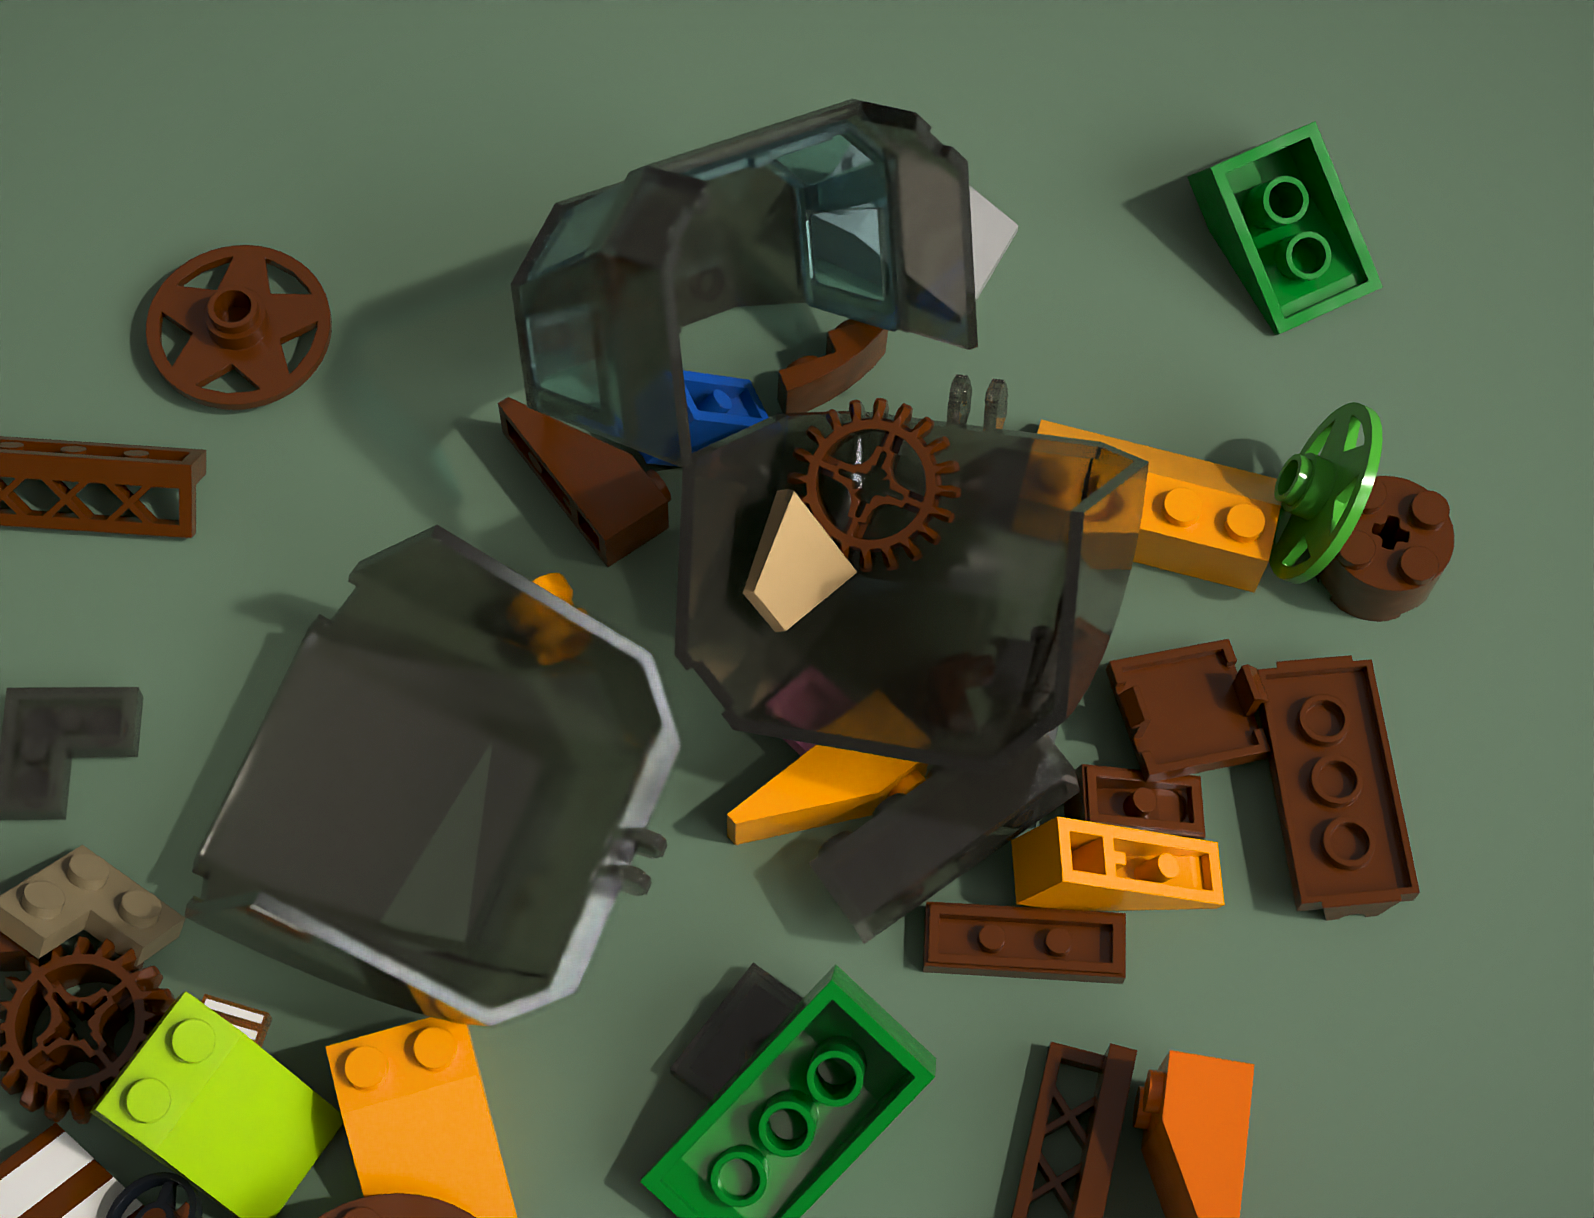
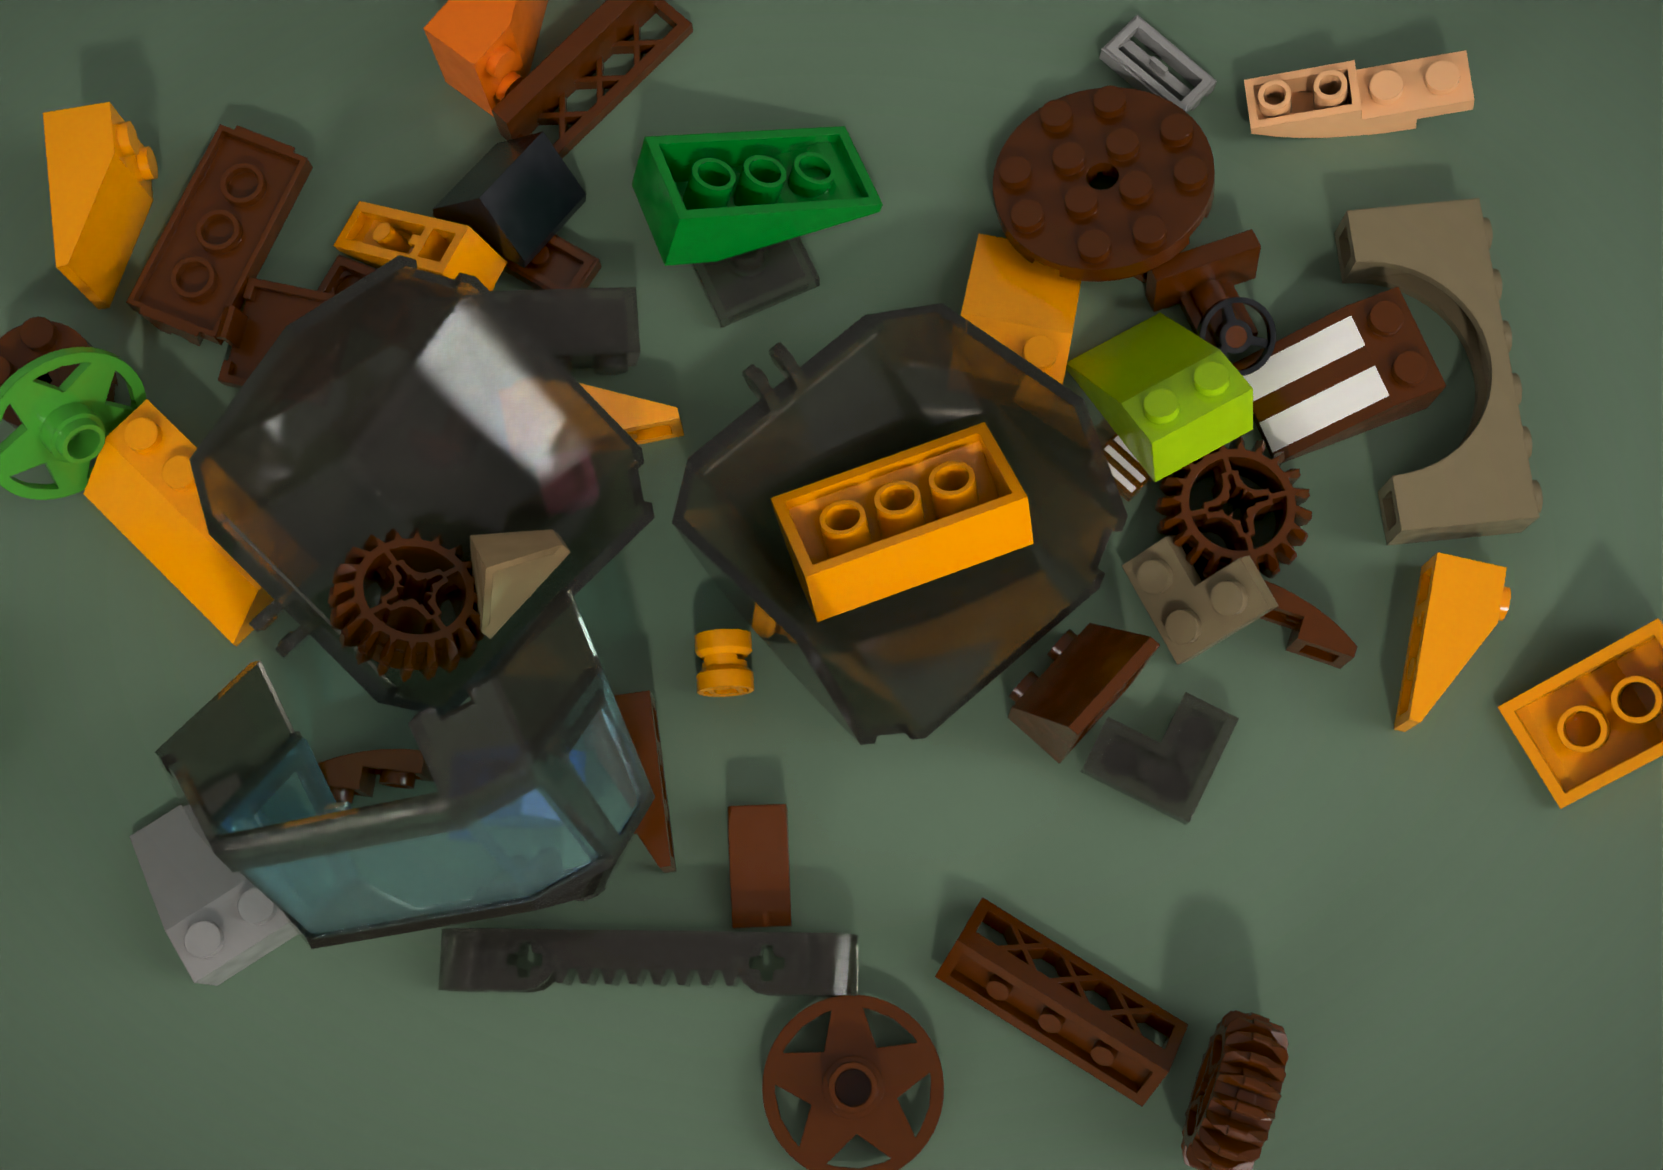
camera: 145 degrees left, 10 degrees up
(163, 737) = (1079, 685): none -> reddish brown slope
(329, 394) = (488, 959): none -> clear smoke gear
(423, 467) = (759, 866): none -> reddish brown slope
(435, 820) = (903, 521): none -> light orange slope
(1056, 974) = (515, 197): none -> black slope
(1478, 736) = (97, 195): none -> light orange slope

